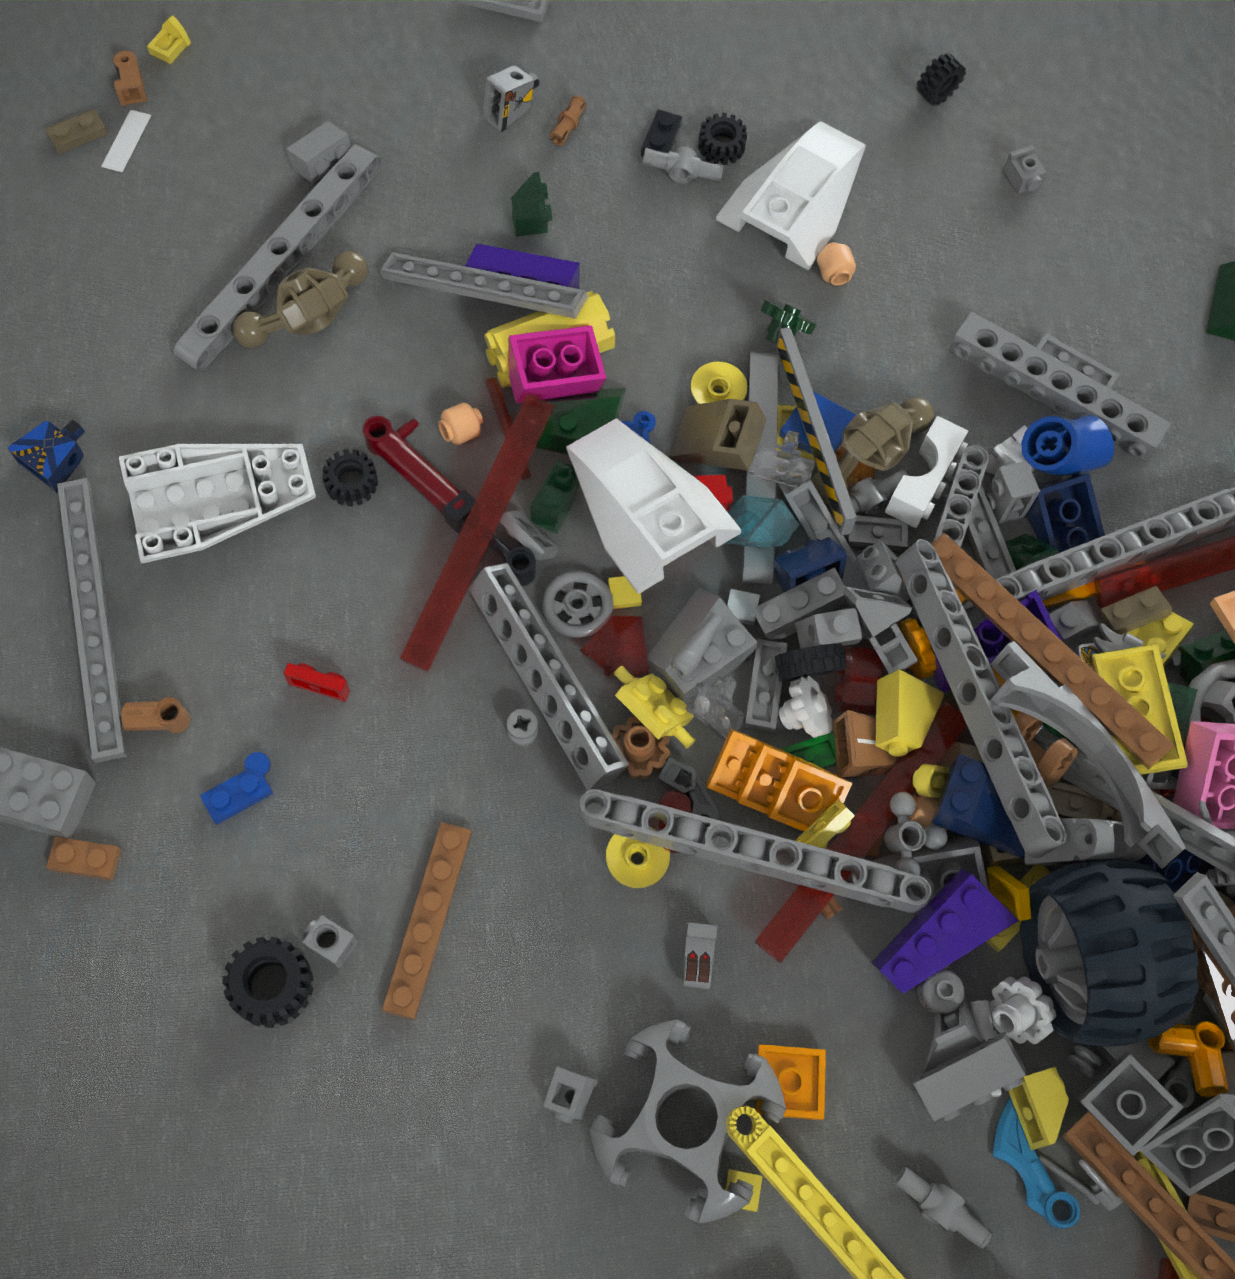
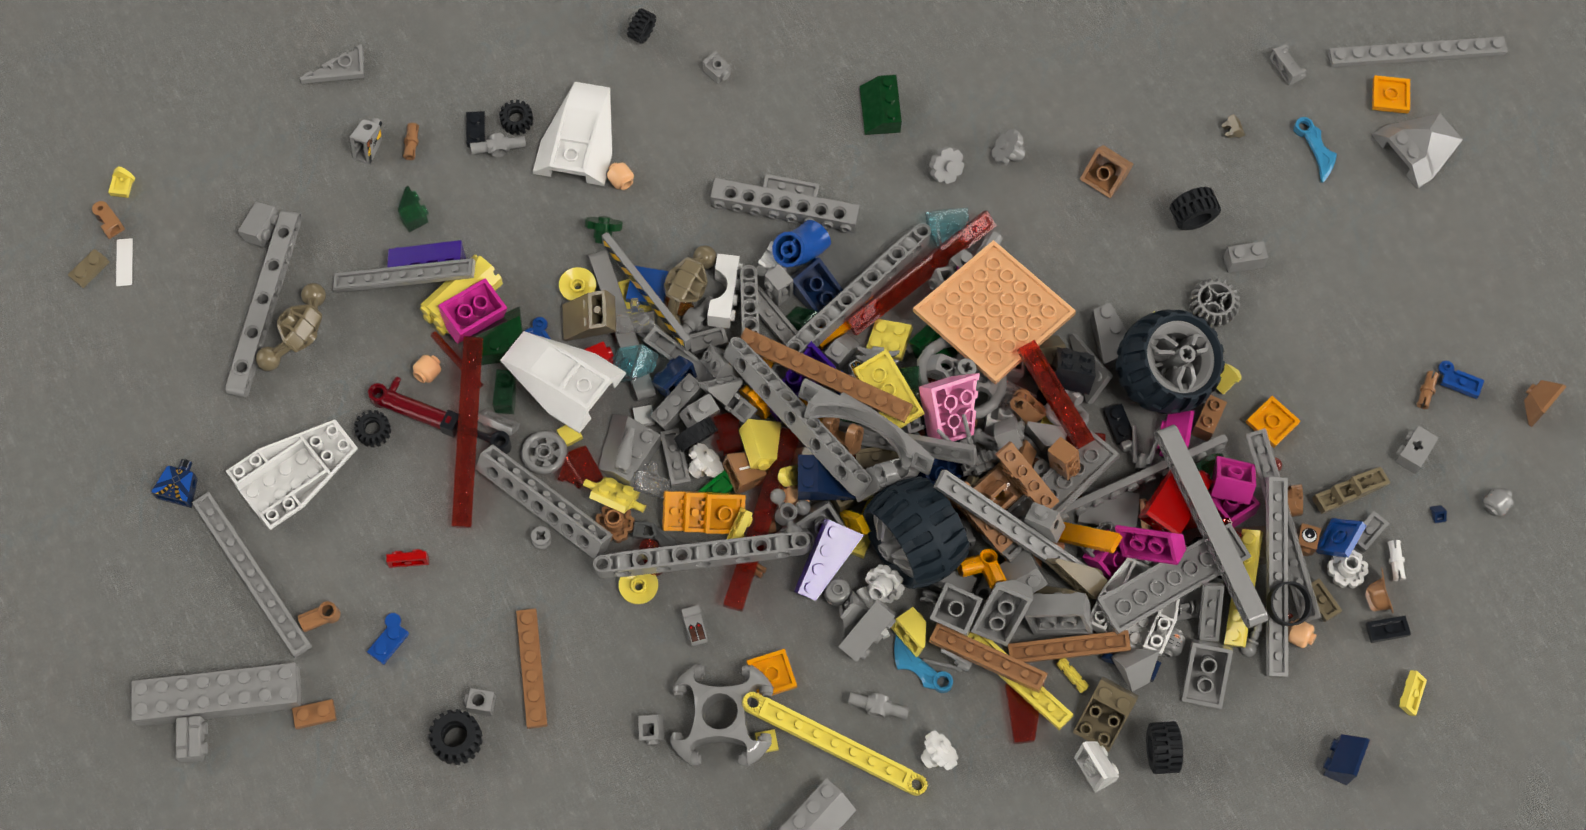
camera: 20 degrees left, 0 degrees up
(1136, 611) = (875, 330): dark tan plate -> none

